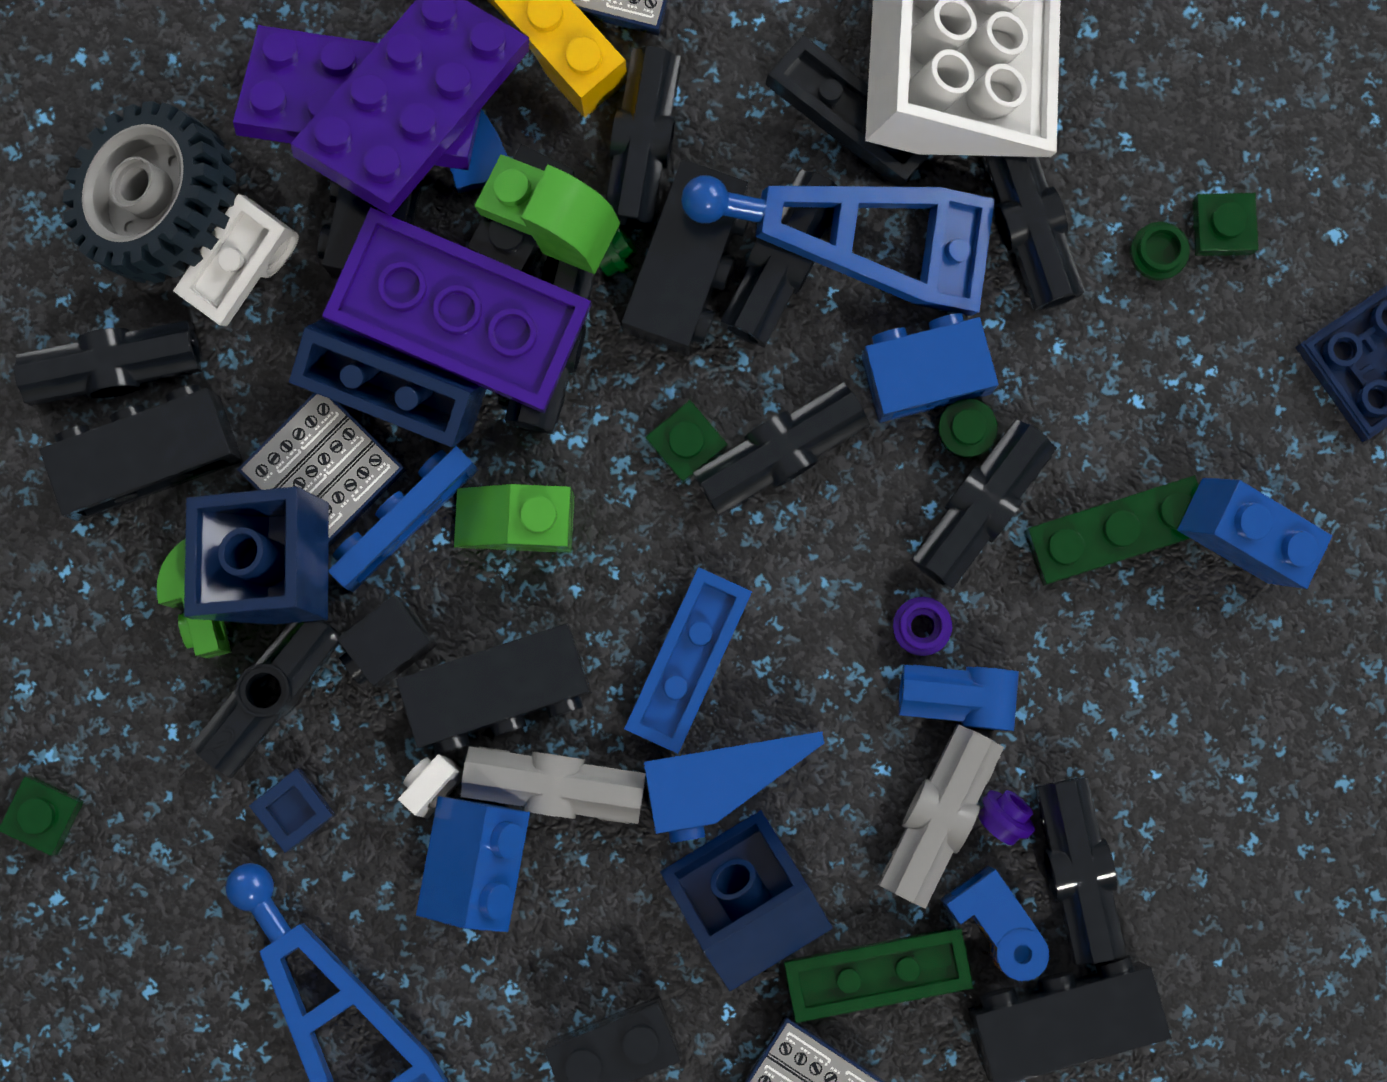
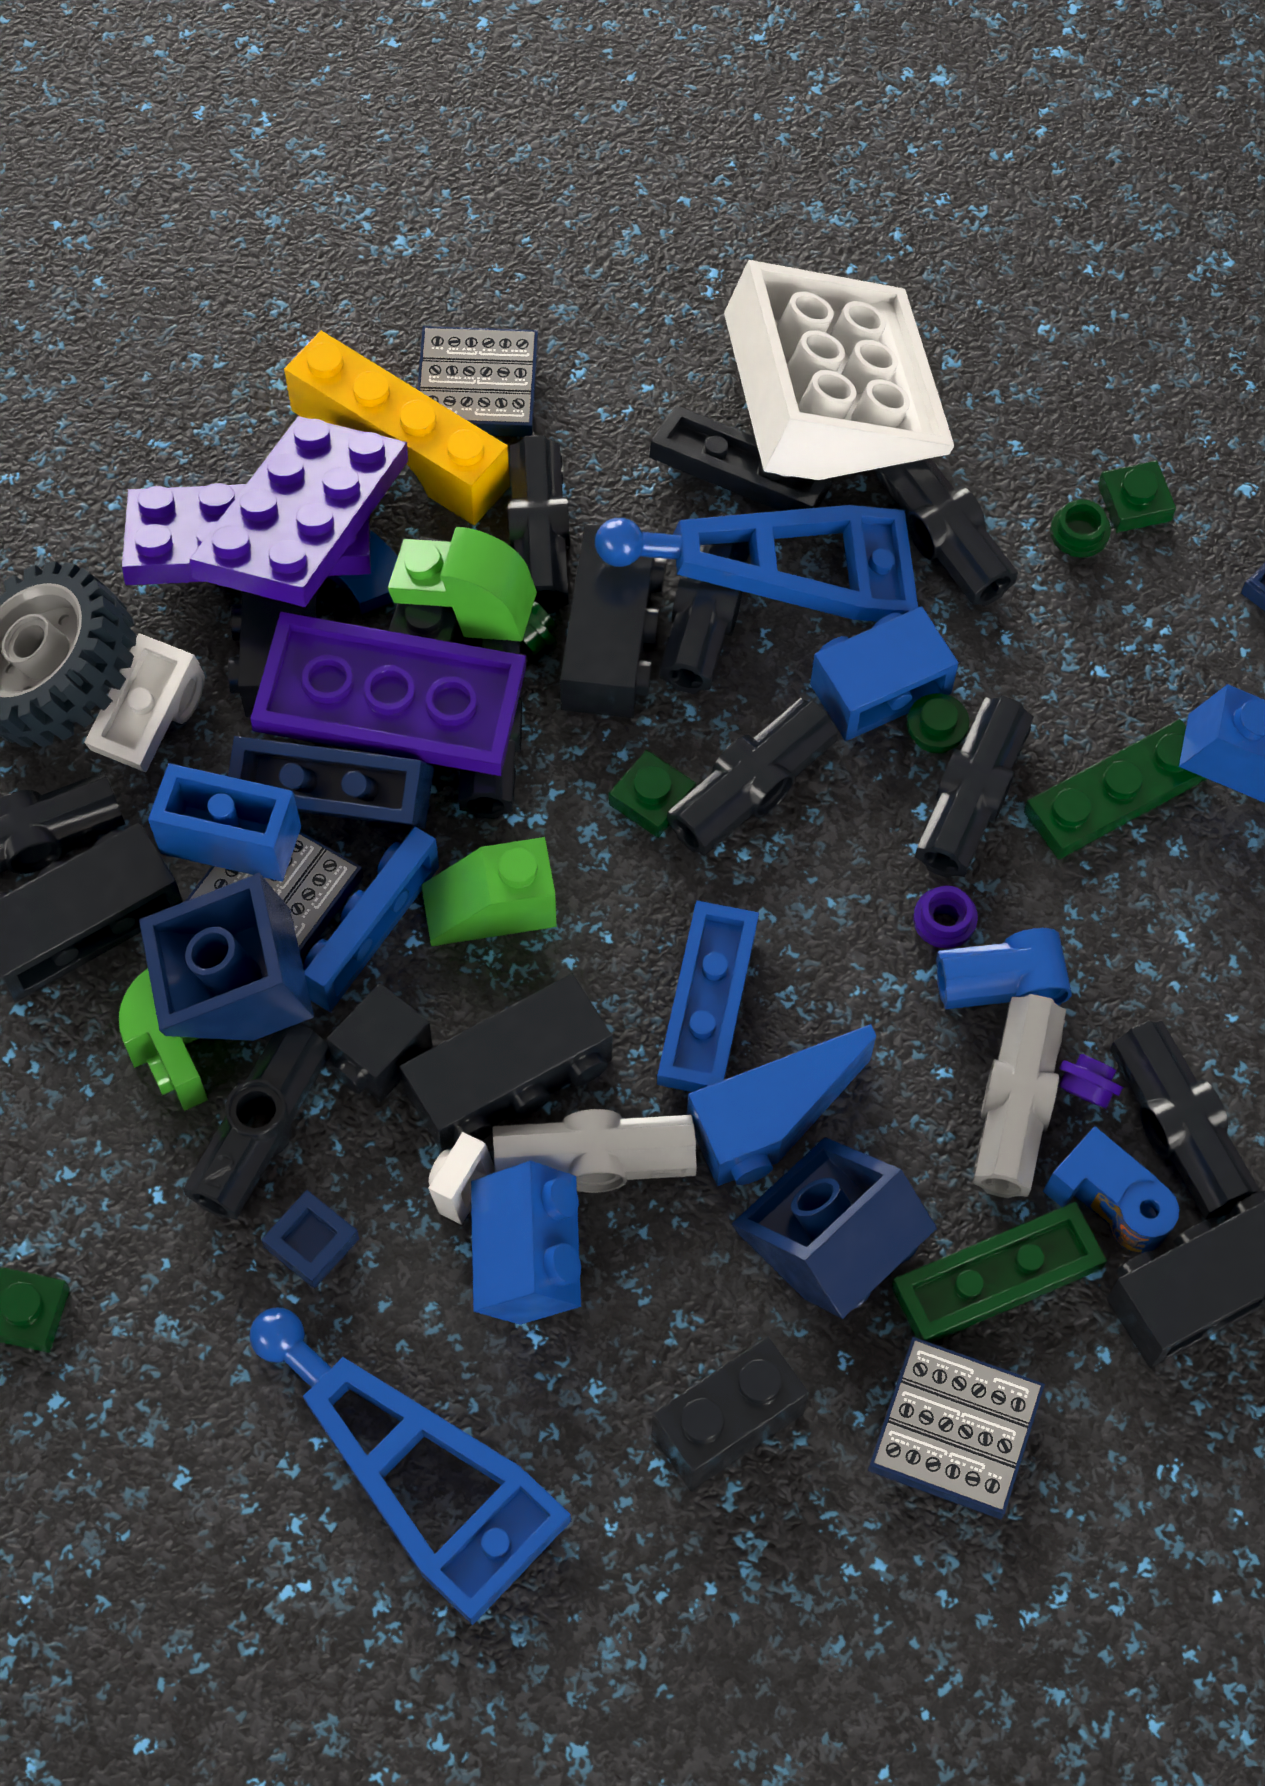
camera: 15 degrees left, 20 degrees down
(281, 413) = (225, 822): none -> blue brick

